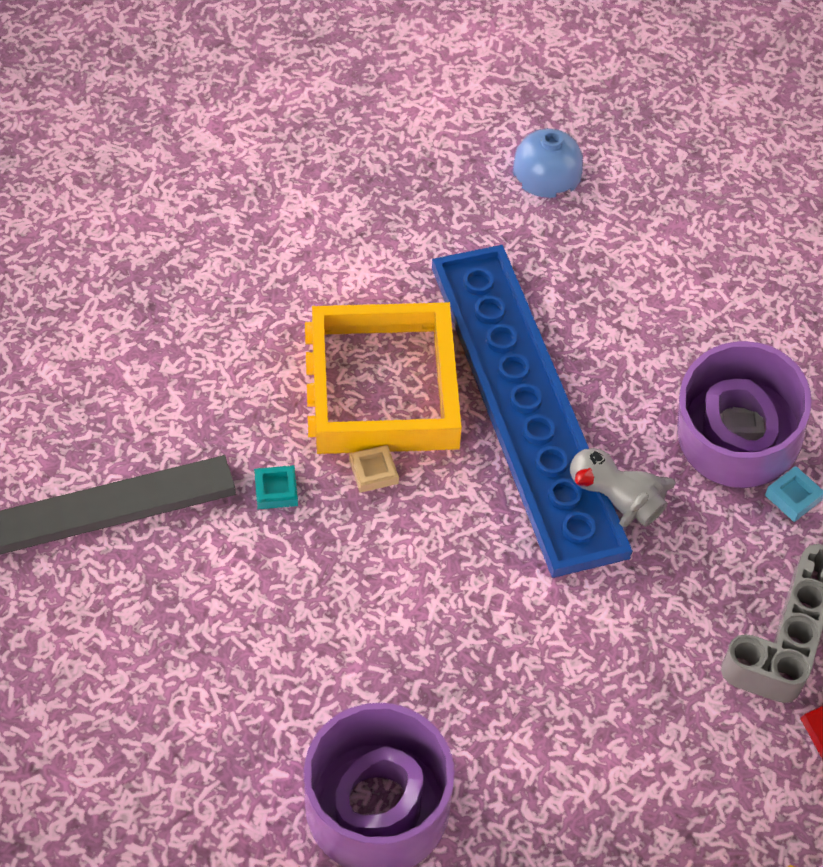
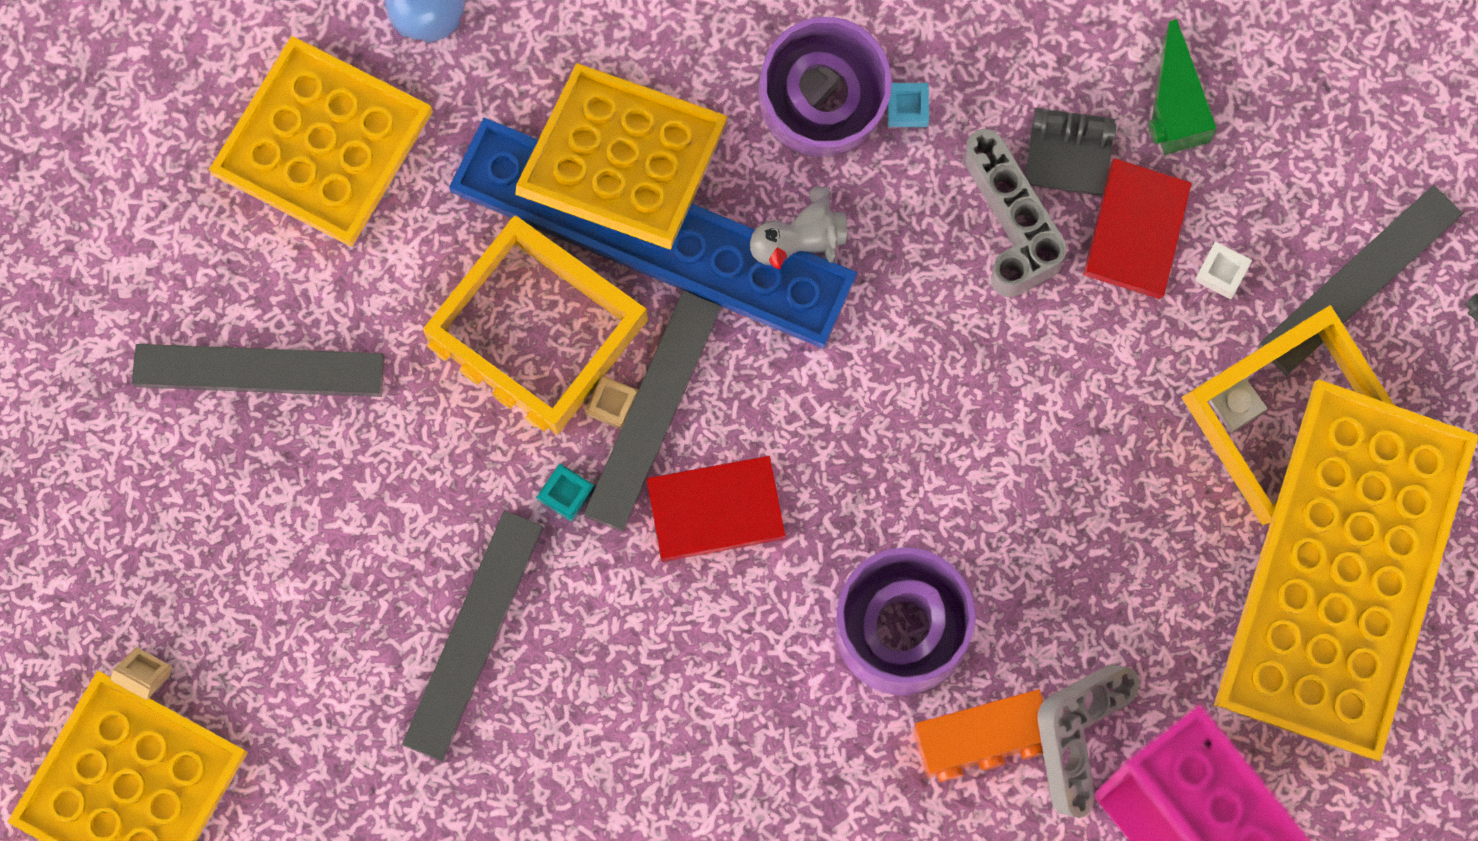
camera: 45 degrees left, 20 degrees up
(199, 250) = (258, 370): none -> dark grey tile
(355, 595) = (715, 508): none -> red tile
(391, 499) = (652, 412): none -> dark grey tile
(393, 175) = (321, 140): none -> yellow plate
(559, 337) = (622, 156): none -> yellow plate

